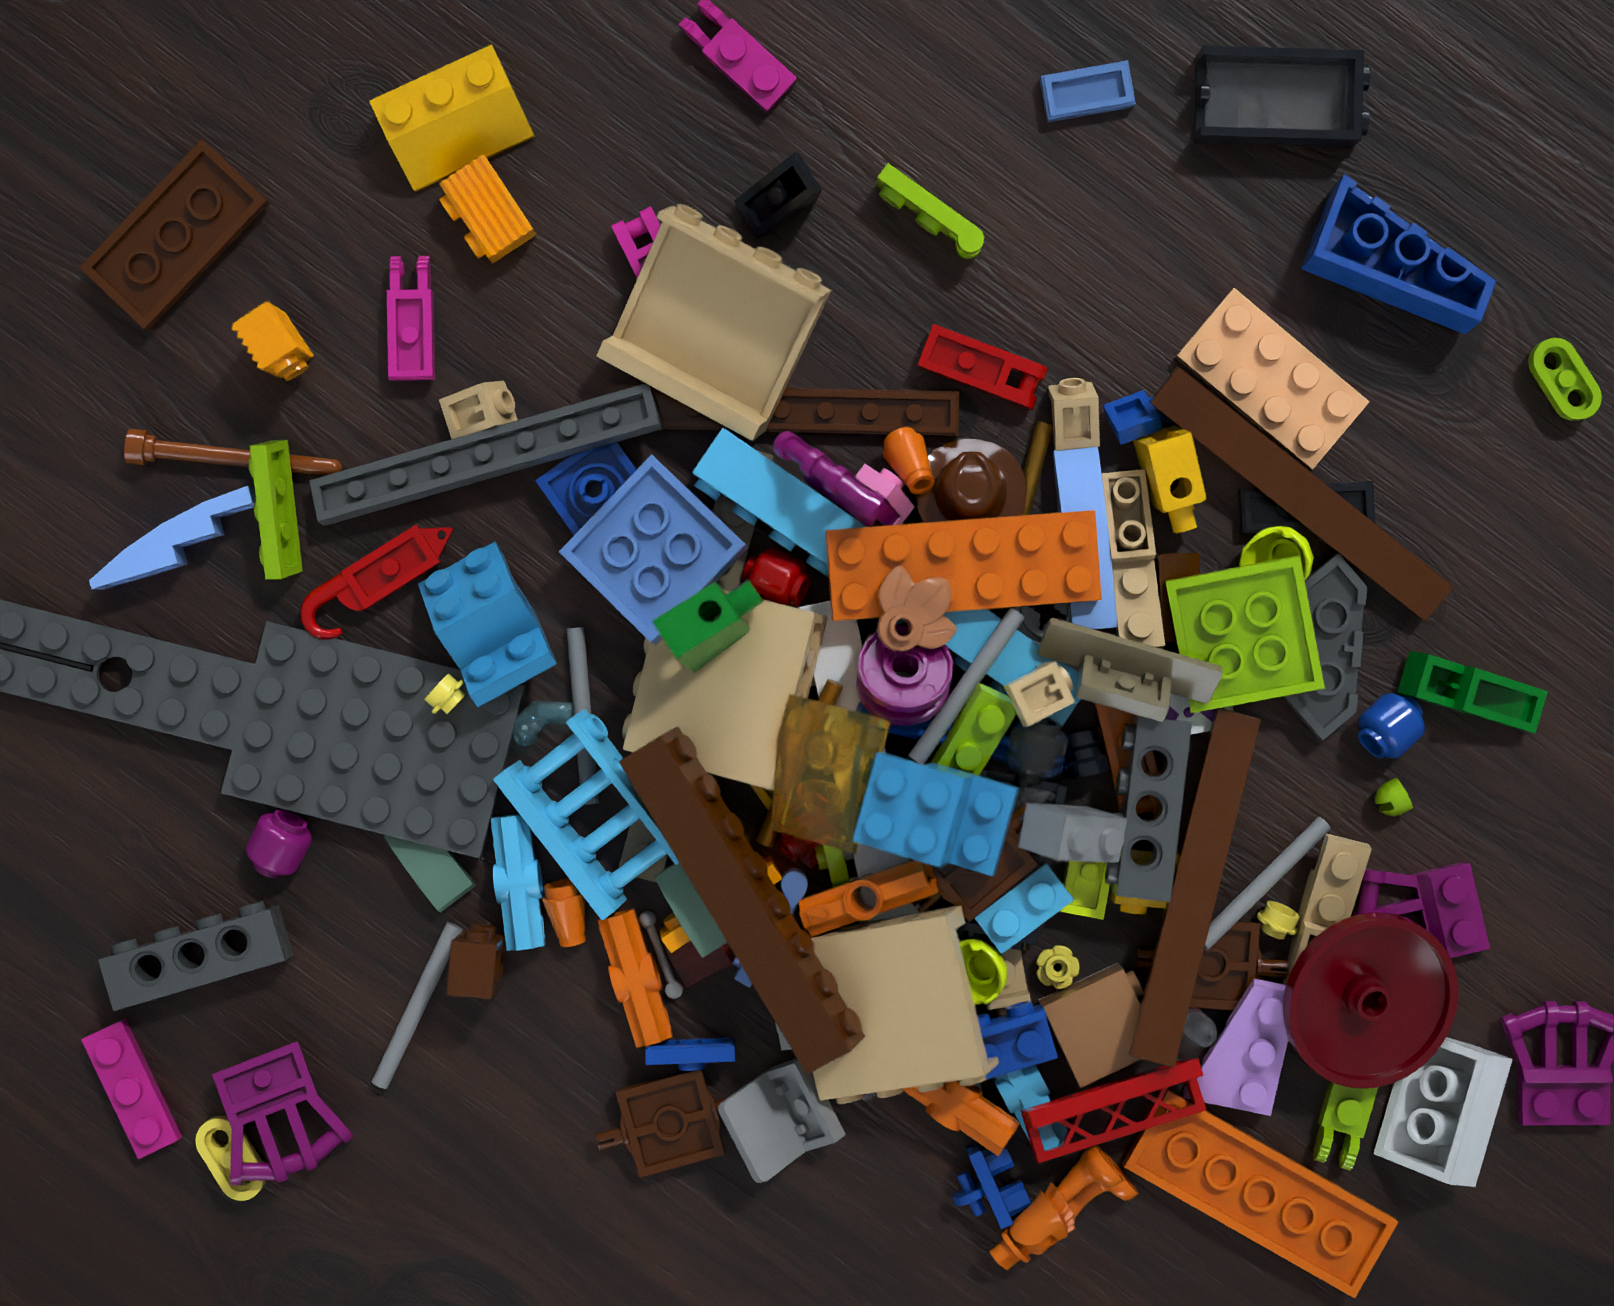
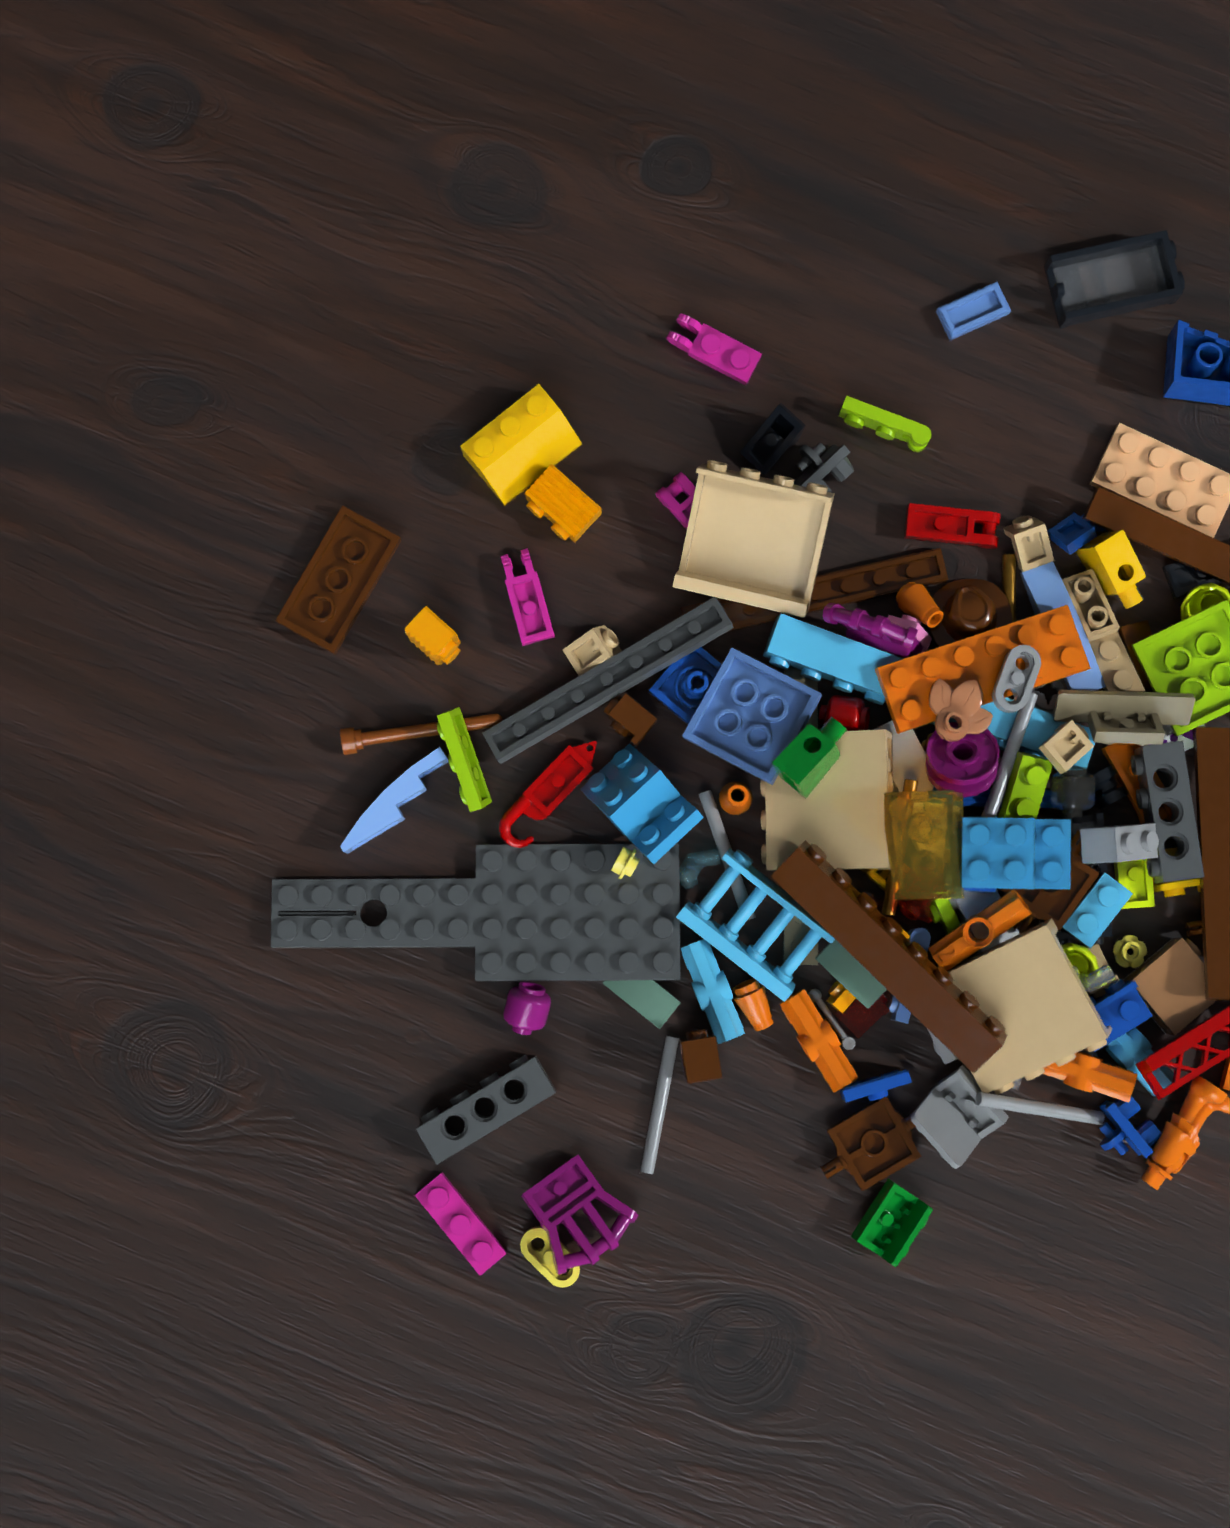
camera: 15 degrees left, 5 degrees down
(502, 511) = (629, 718): none -> reddish brown brick
(624, 641) = (731, 806): none -> orange cone
(666, 1225) = (892, 1223): none -> green bracket
(850, 242) = (832, 461): none -> dark grey hips
(886, 1133) = (1039, 1108): none -> light grey bar
(992, 996) = (1096, 978): none -> clear arm
(998, 592) = (1016, 680): none -> light grey plate

